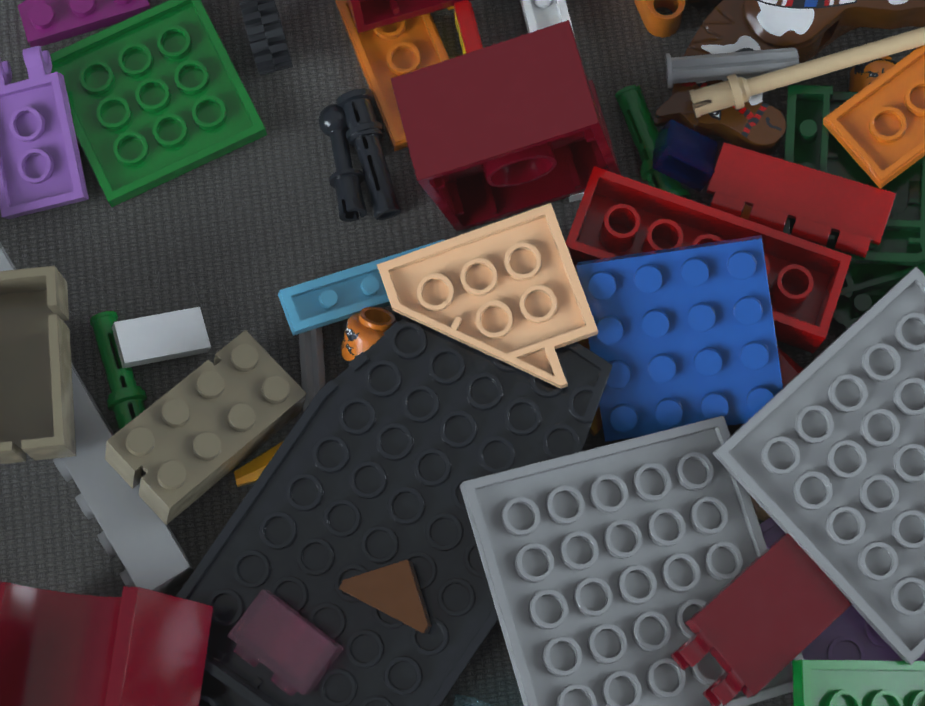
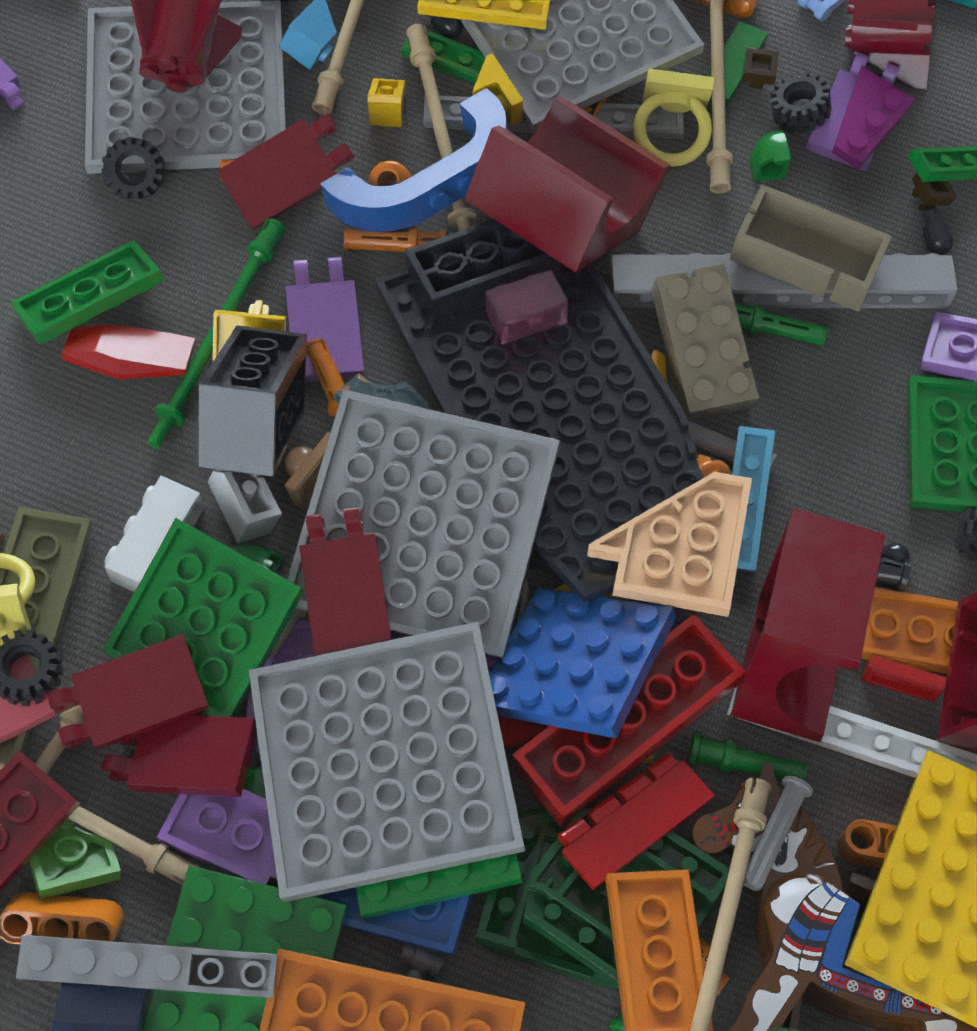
camera: 115 degrees right, 10 degrees down
(161, 337) = (787, 359): white tile -> none
(392, 591) = (513, 378): reddish brown slope -> none
(684, 155) = (722, 766): clear blue piece -> none

